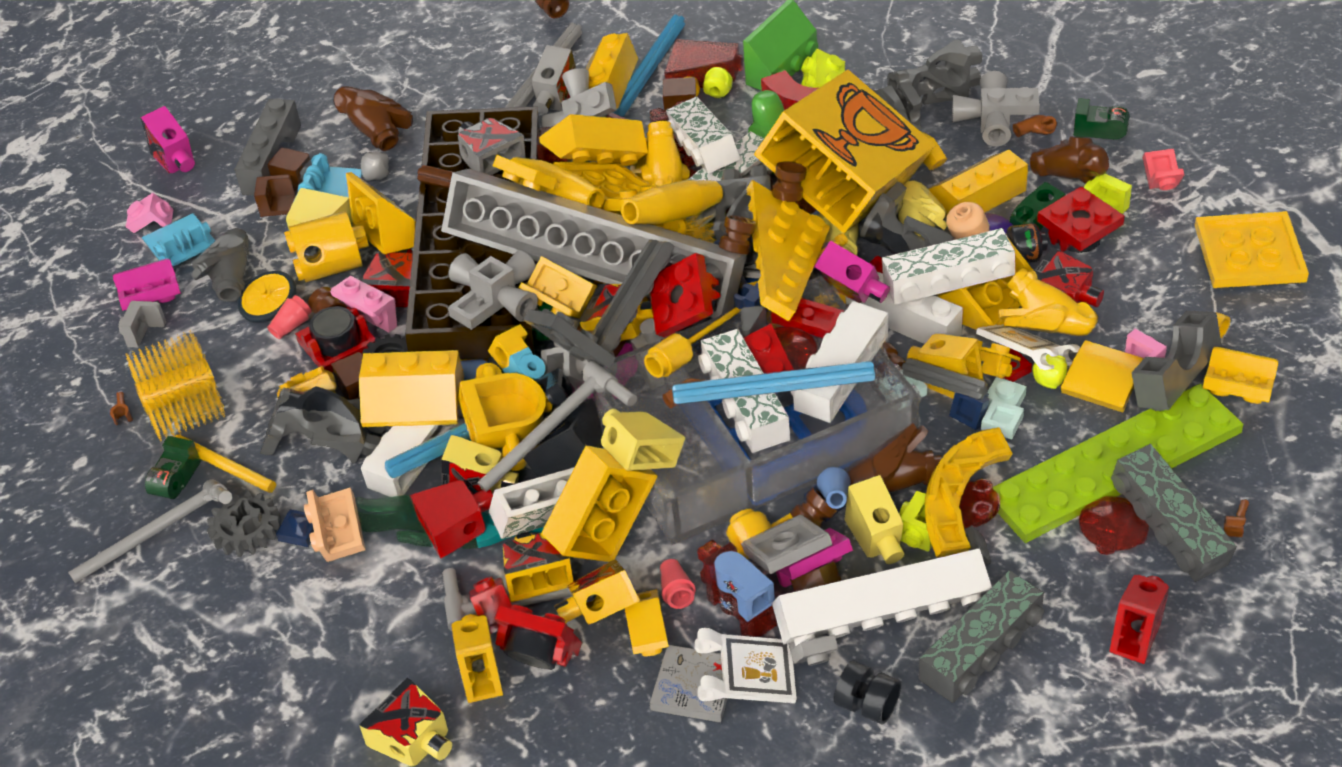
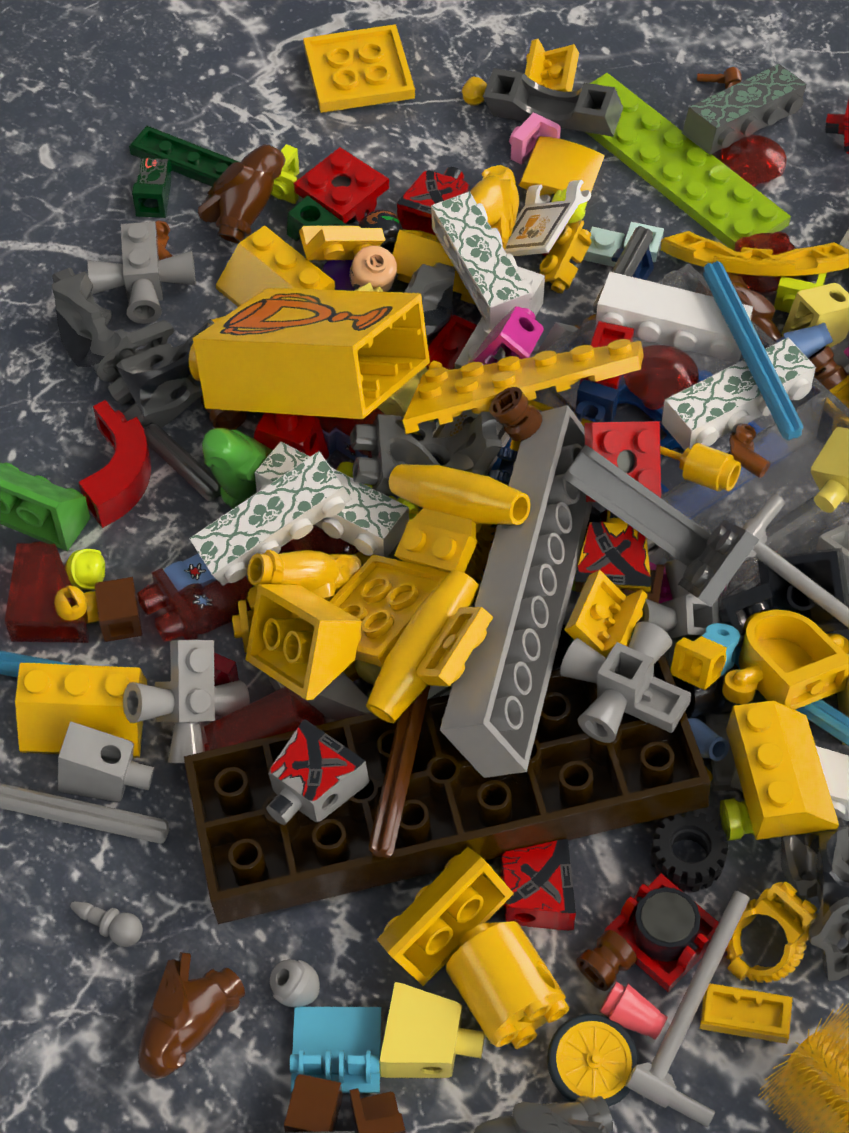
camera: 105 degrees left, 10 degrees up
(241, 318) = (652, 1079): none -> light grey bar
(263, 374) = (746, 1013): none -> yellow plate
(347, 375) = (737, 873): reddish brown panel -> none
(370, 302) = (603, 900): bright pink bracket -> none
(450, 95) = (123, 928): none -> light grey bar
(677, 62) = (63, 607): none -> yellow hinge
(752, 319) = (641, 401): dark grey slope -> none
(768, 350) = (687, 371): red plate -> none
(789, 181) = (405, 379): reddish brown wheel -> none
(821, 69) = (67, 457): neon yellow bracket -> none
(951, 353) = (584, 283): yellow torso -> none
(1001, 199) = (338, 241): none -> yellow bracket
(1144, 138) = (184, 156): none -> dark green tile
(1162, 169) = (240, 133): coral bracket -> none

